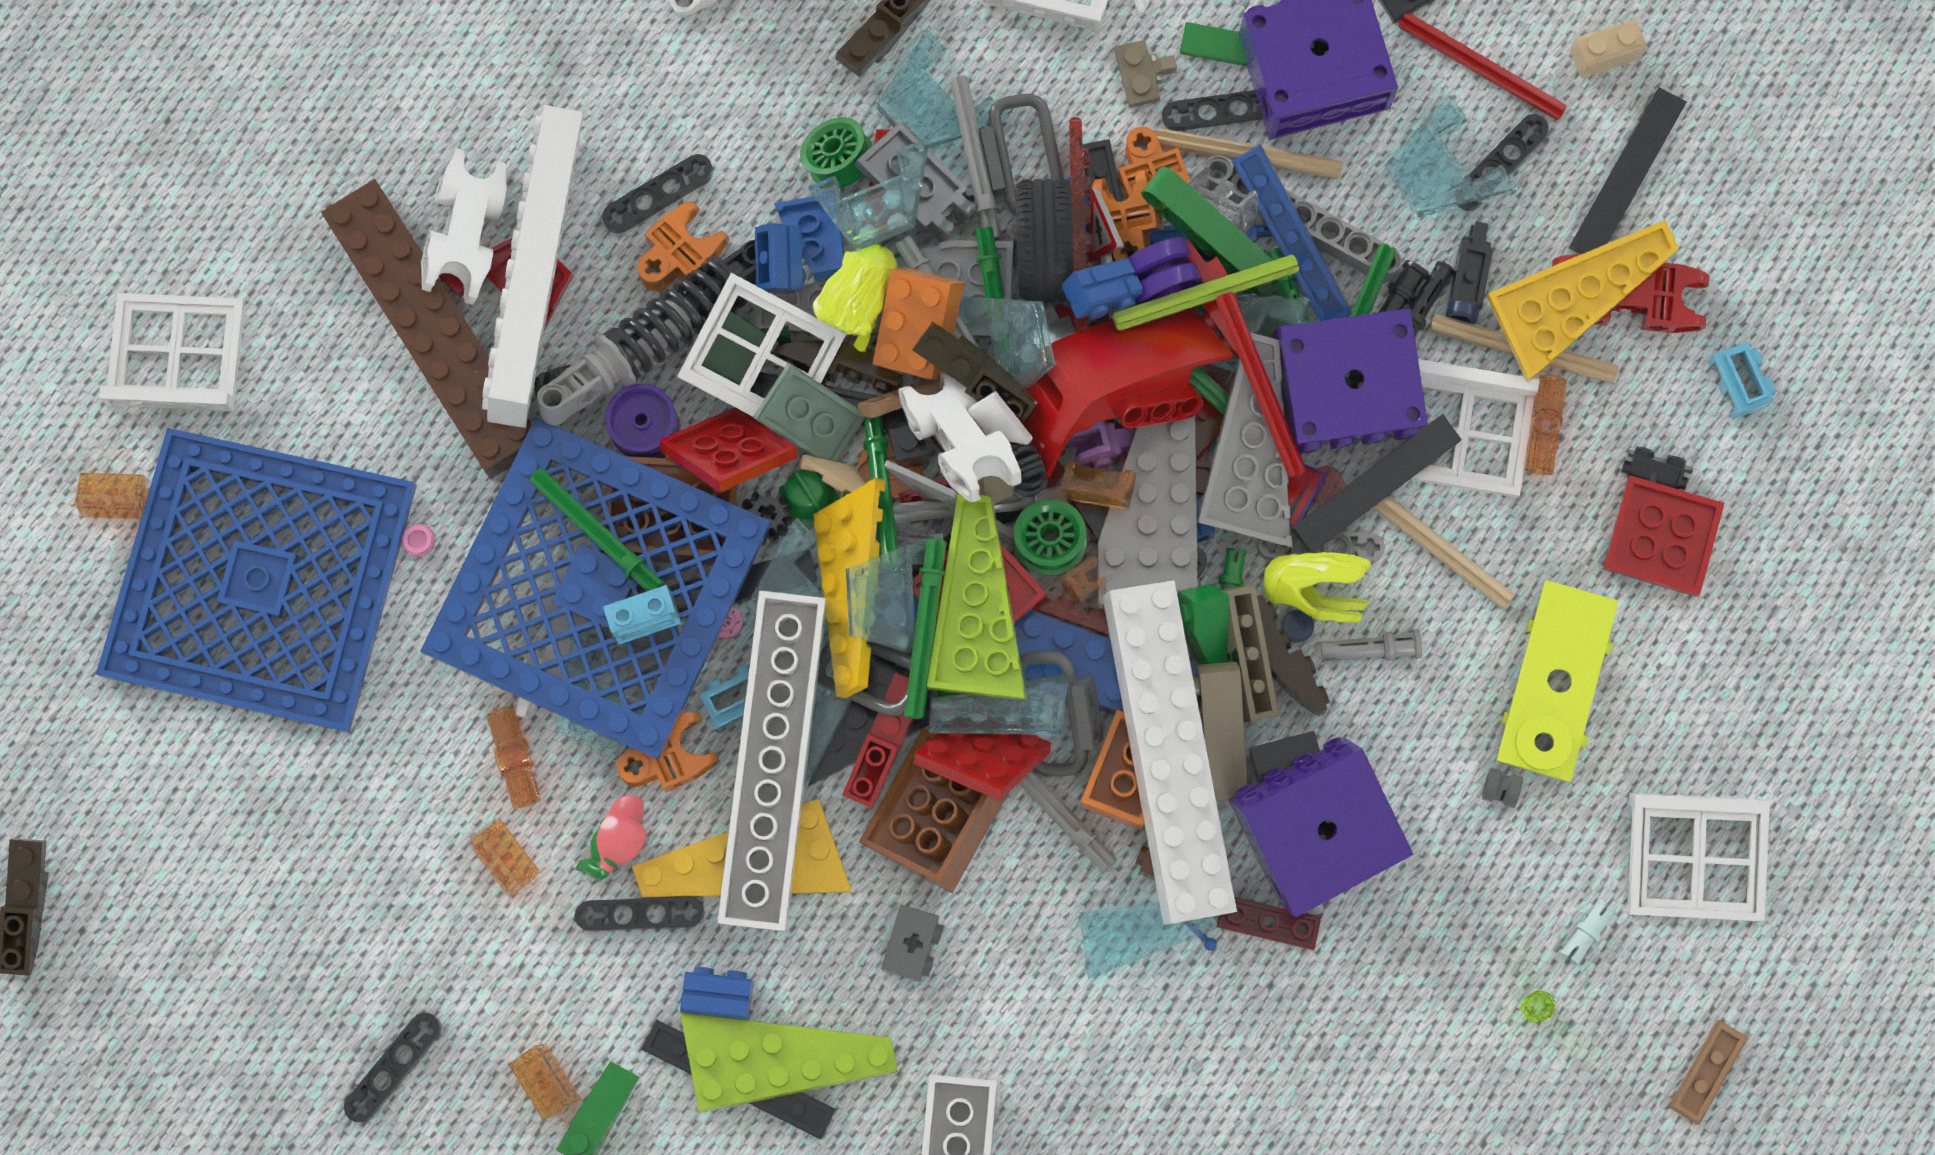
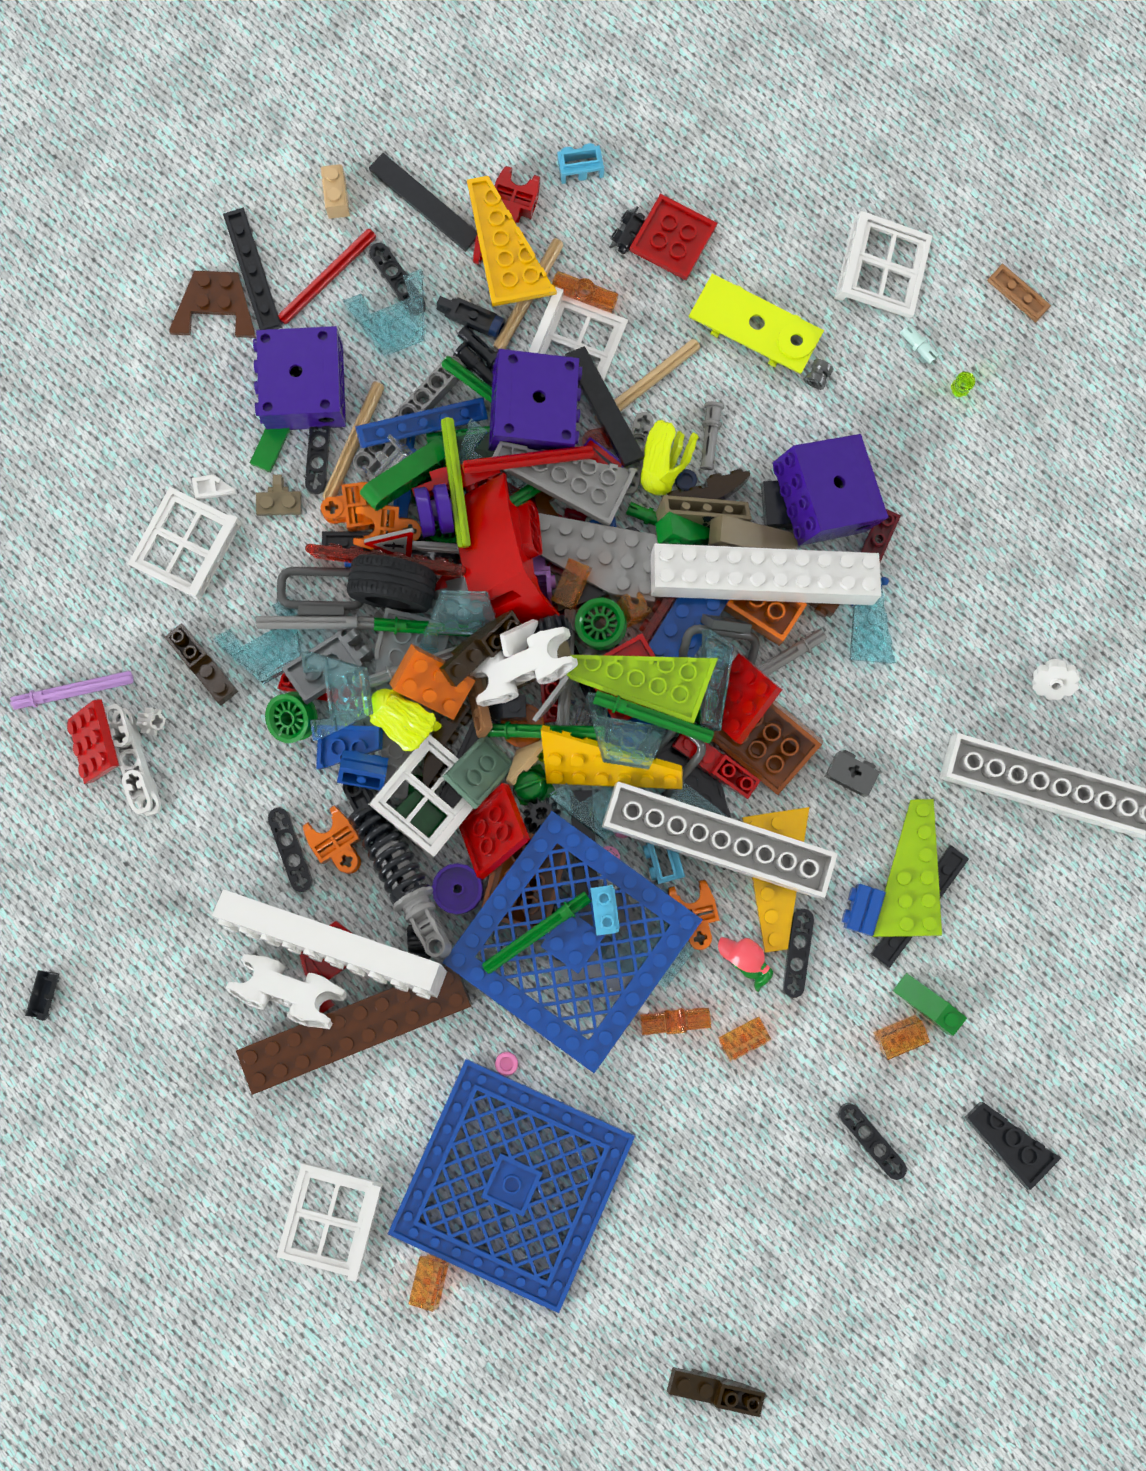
camera: 90 degrees left, 5 degrees up
(1102, 289) = (439, 548): blue brick -> none

